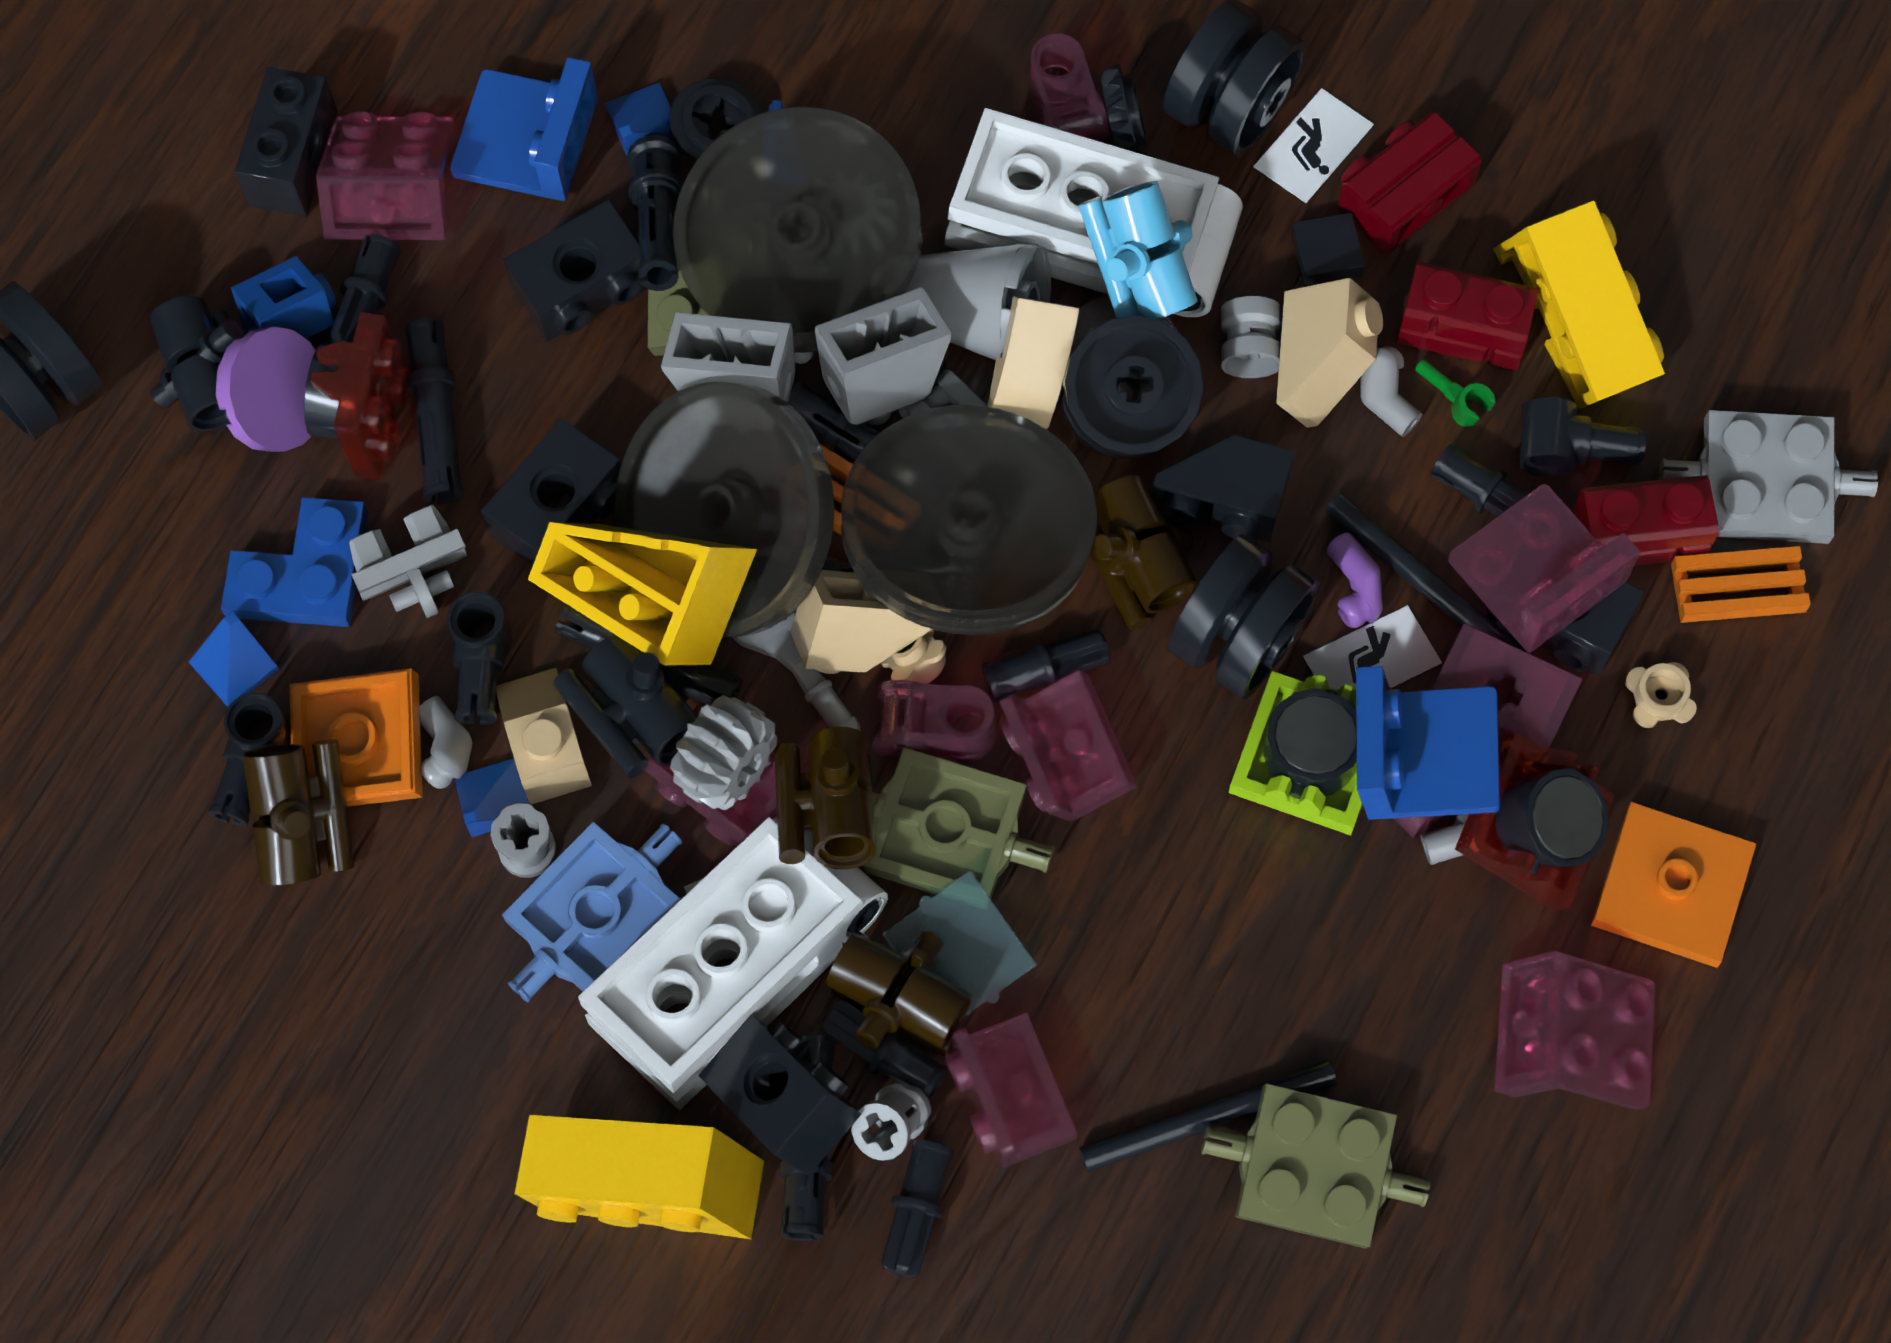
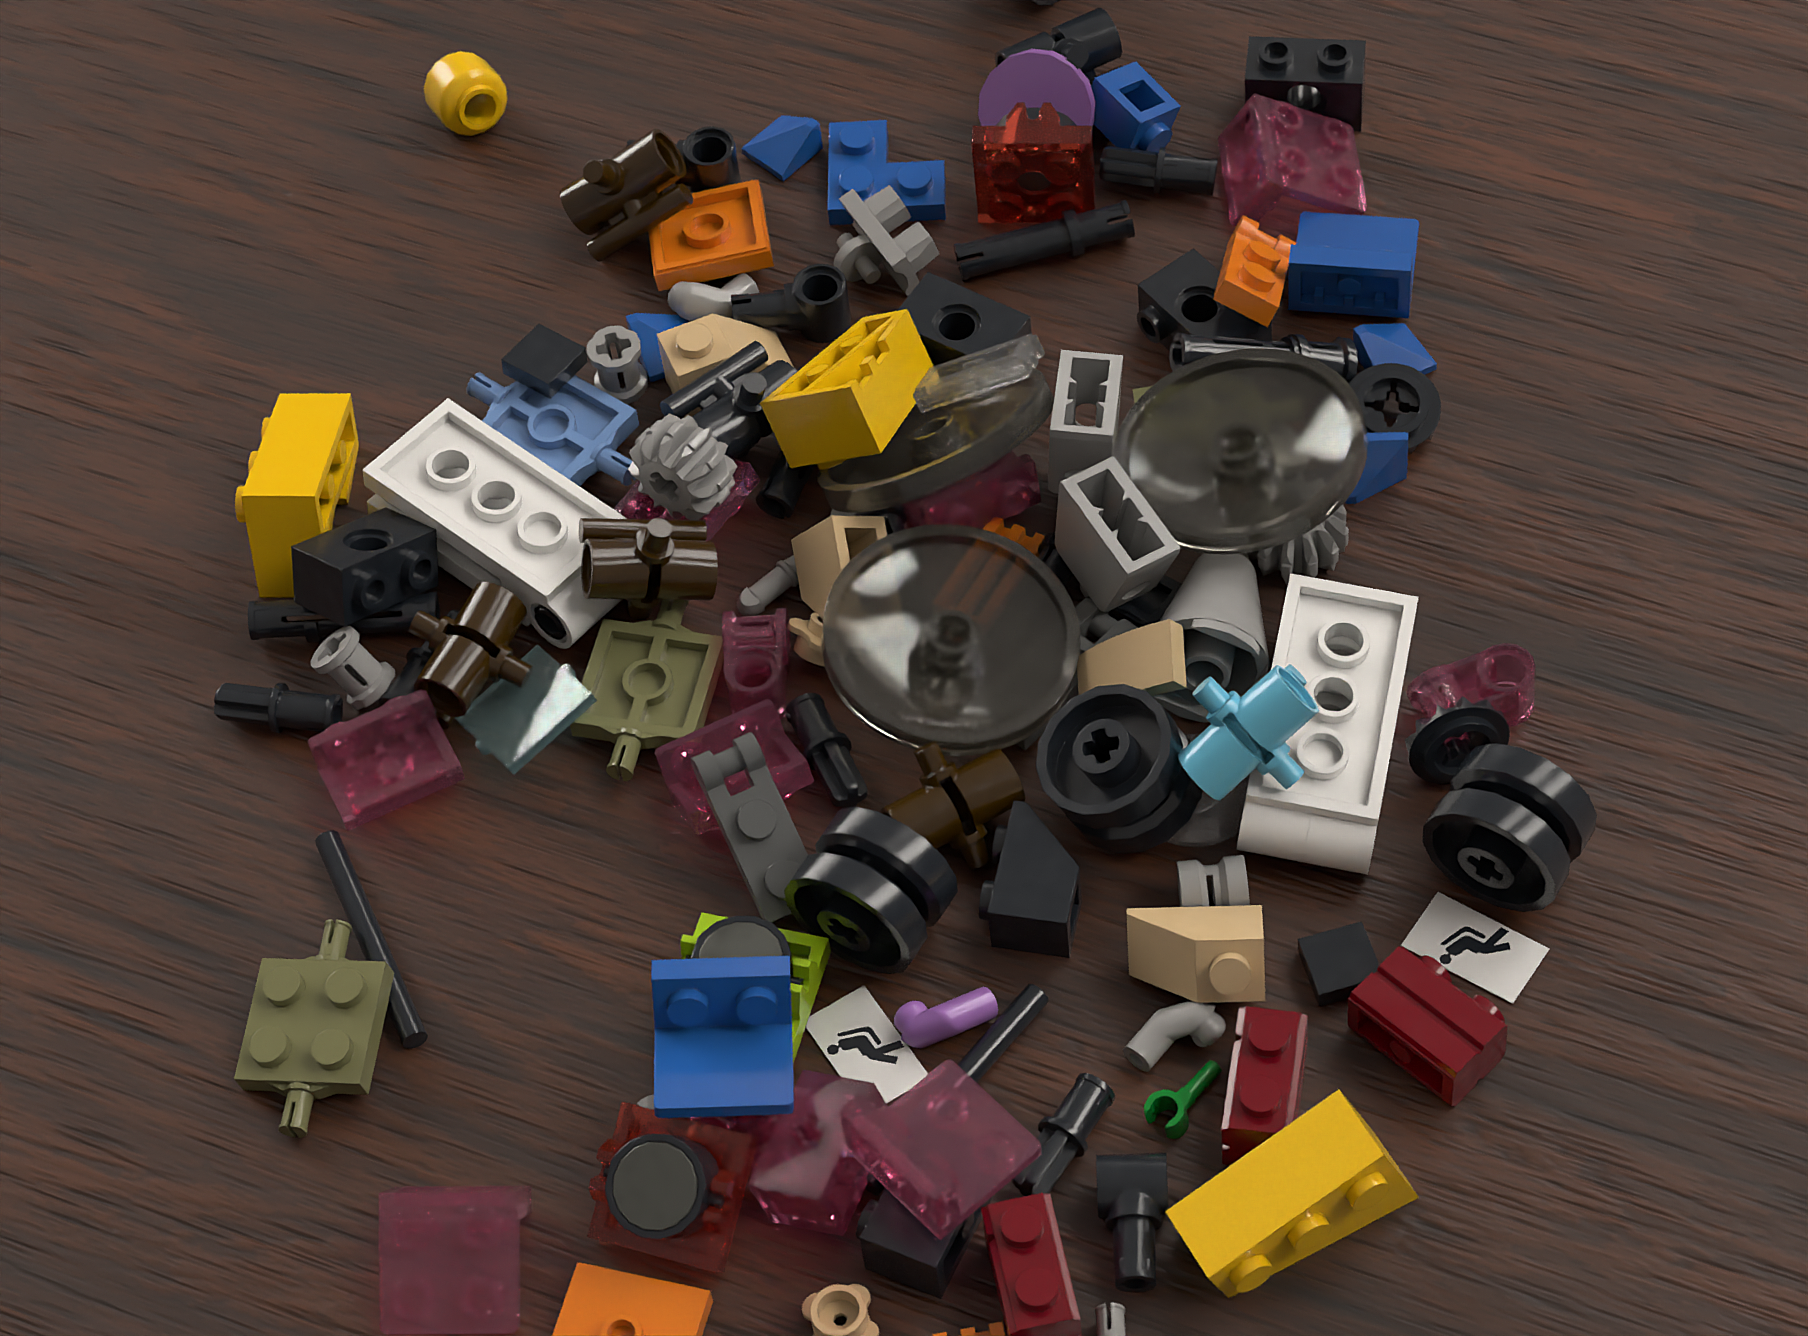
camera: 90 degrees right, 15 degrees down
(87, 993) = (465, 93): none -> yellow head
(518, 907) = (544, 360): none -> black tile
(542, 209) = (1253, 272): none -> orange plate
(647, 466) = (978, 372): none -> clear tile
(1150, 721) = (753, 823): none -> dark grey plate

